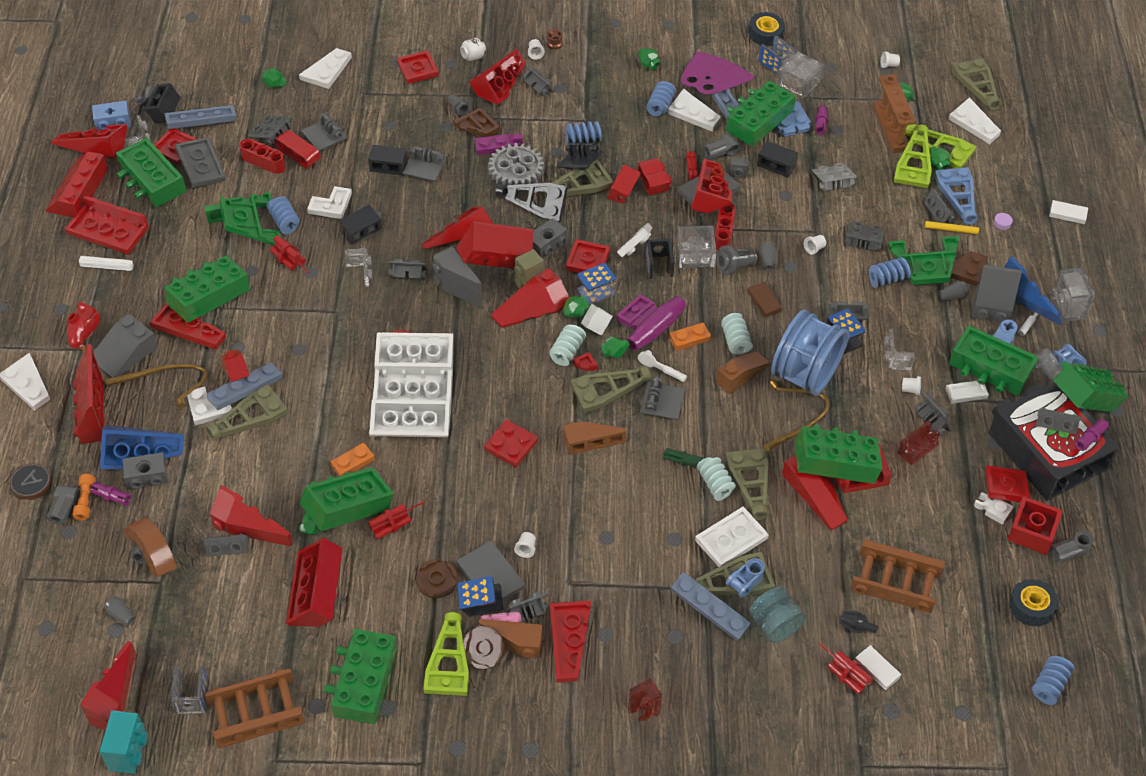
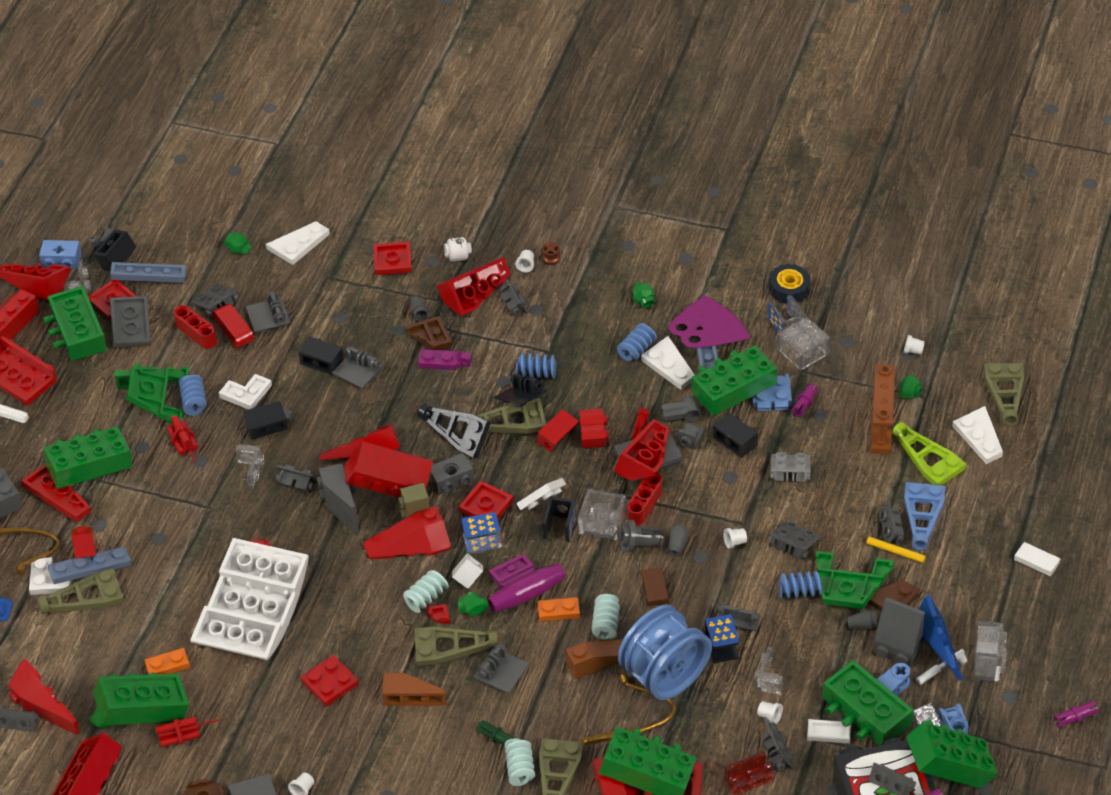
camera: 20 degrees right, 5 degrees down
(516, 165) = (451, 387): light grey gear -> none
(575, 306) = (451, 552): green rock -> none
(648, 360) = (503, 624): white piece -> none
(911, 175) = (881, 484): lime plate -> none
(939, 158) = (915, 469): green rock -> none
(1002, 221) = (957, 554): lavender tile -> none

